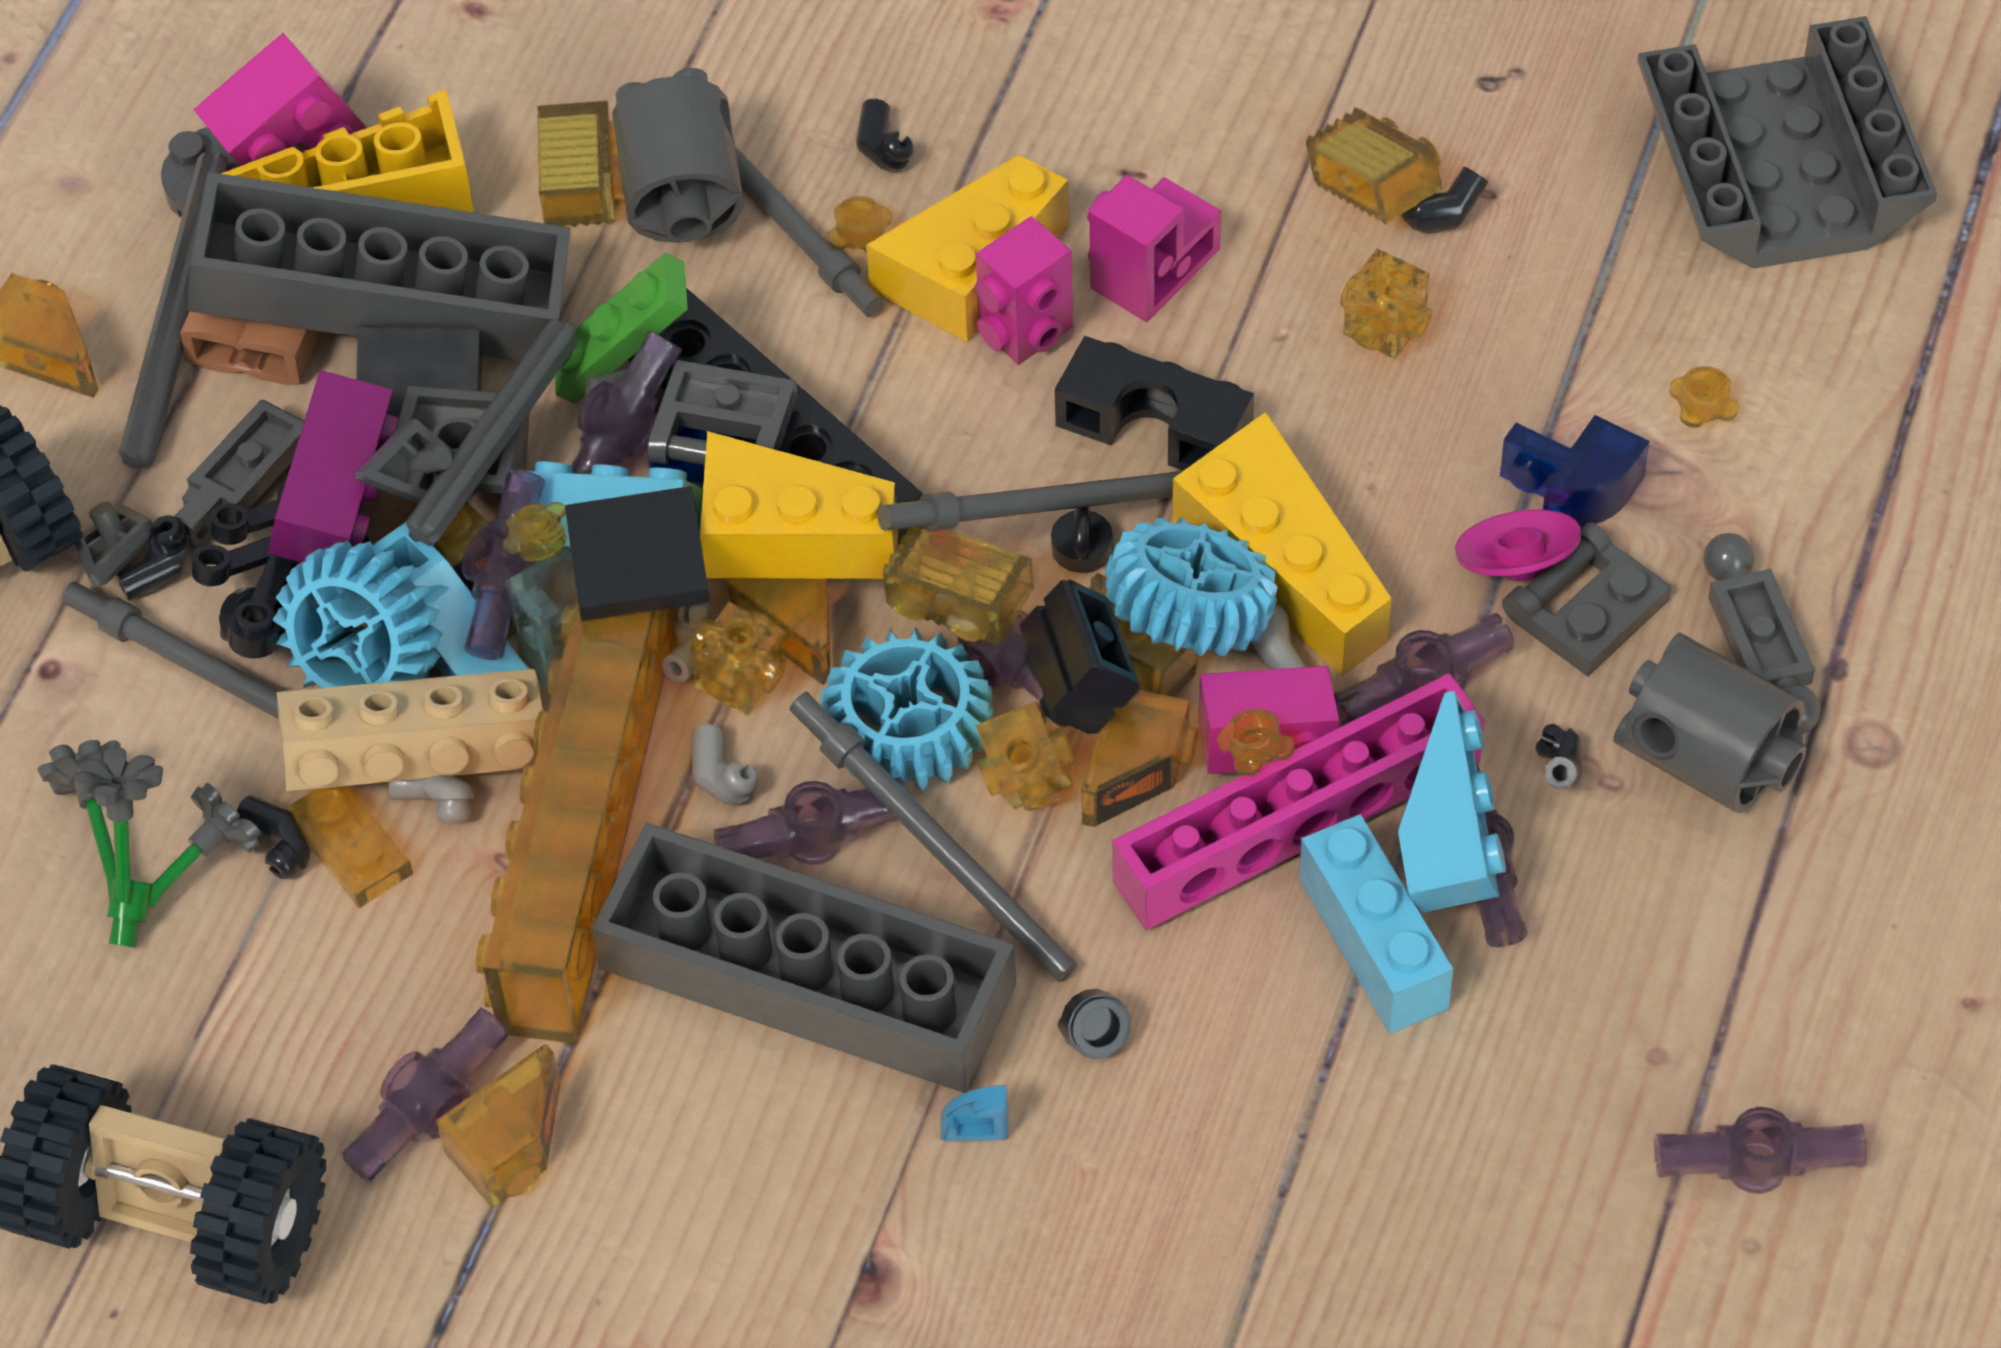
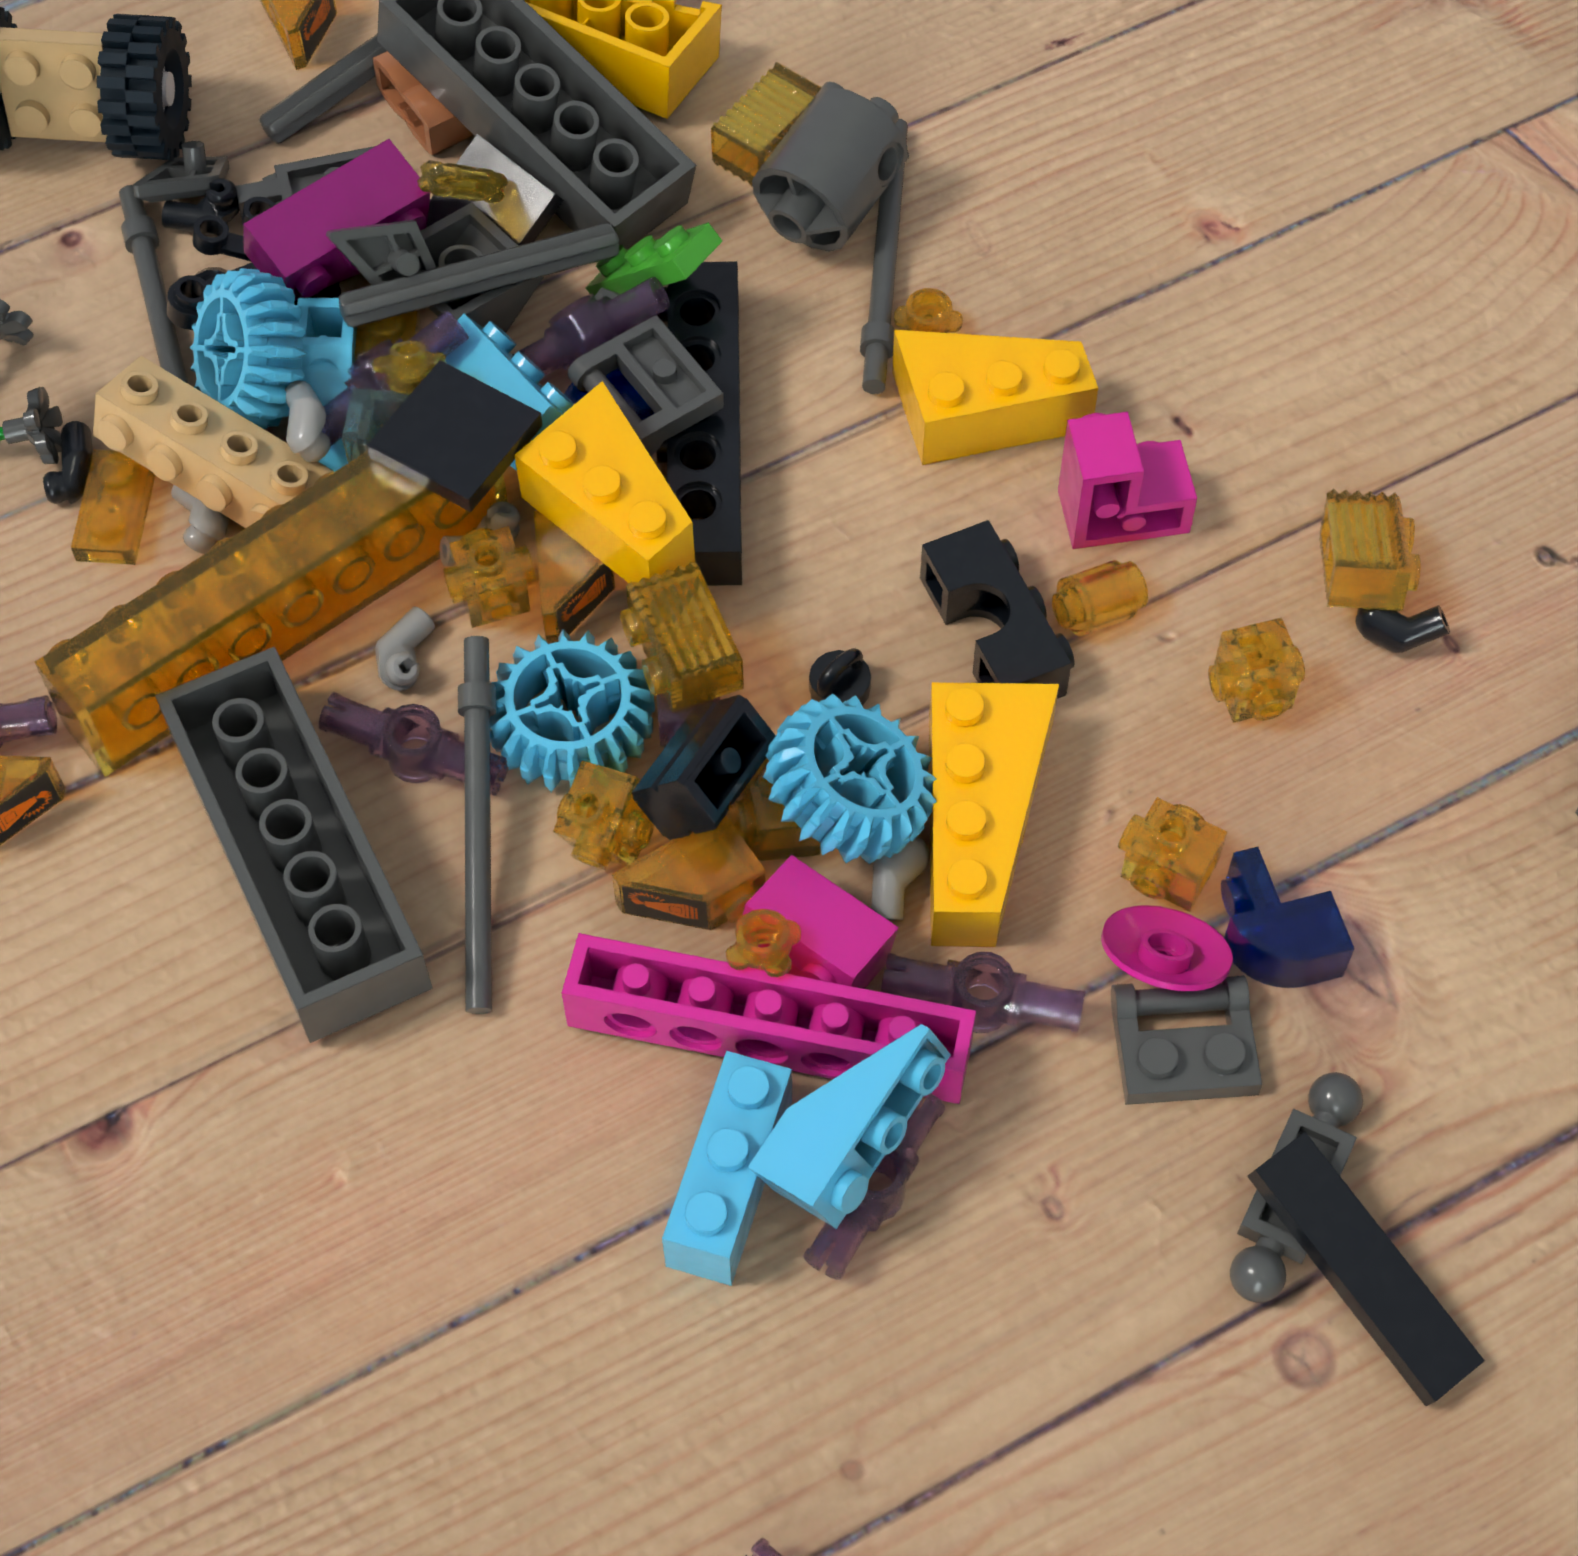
camera: 40 degrees right, 5 degrees up
(405, 367) = (462, 182): none -> clear yellow axle
(479, 638) = (306, 422): none -> light grey arm
(875, 141) = (1008, 261): black arm -> none
(945, 510) = (706, 571): dark grey bar -> none
(976, 1115) = (293, 1069): dark azure tile -> none
(1024, 291) = (977, 450): dark pink brick -> none
(1095, 1023) = (446, 1068): tile -> none
(1213, 336) = (1099, 597): none -> clear yellow brick
(1456, 475) = (1171, 853): none -> clear yellow brick
(1565, 754) = (1019, 1166): black arm -> none
(1708, 384) = (1459, 931): clear yellow plate -> none
(1713, 725) = (1160, 1232): dark grey cylinder -> none
(1860, 646) = (1366, 1269): none -> black tile

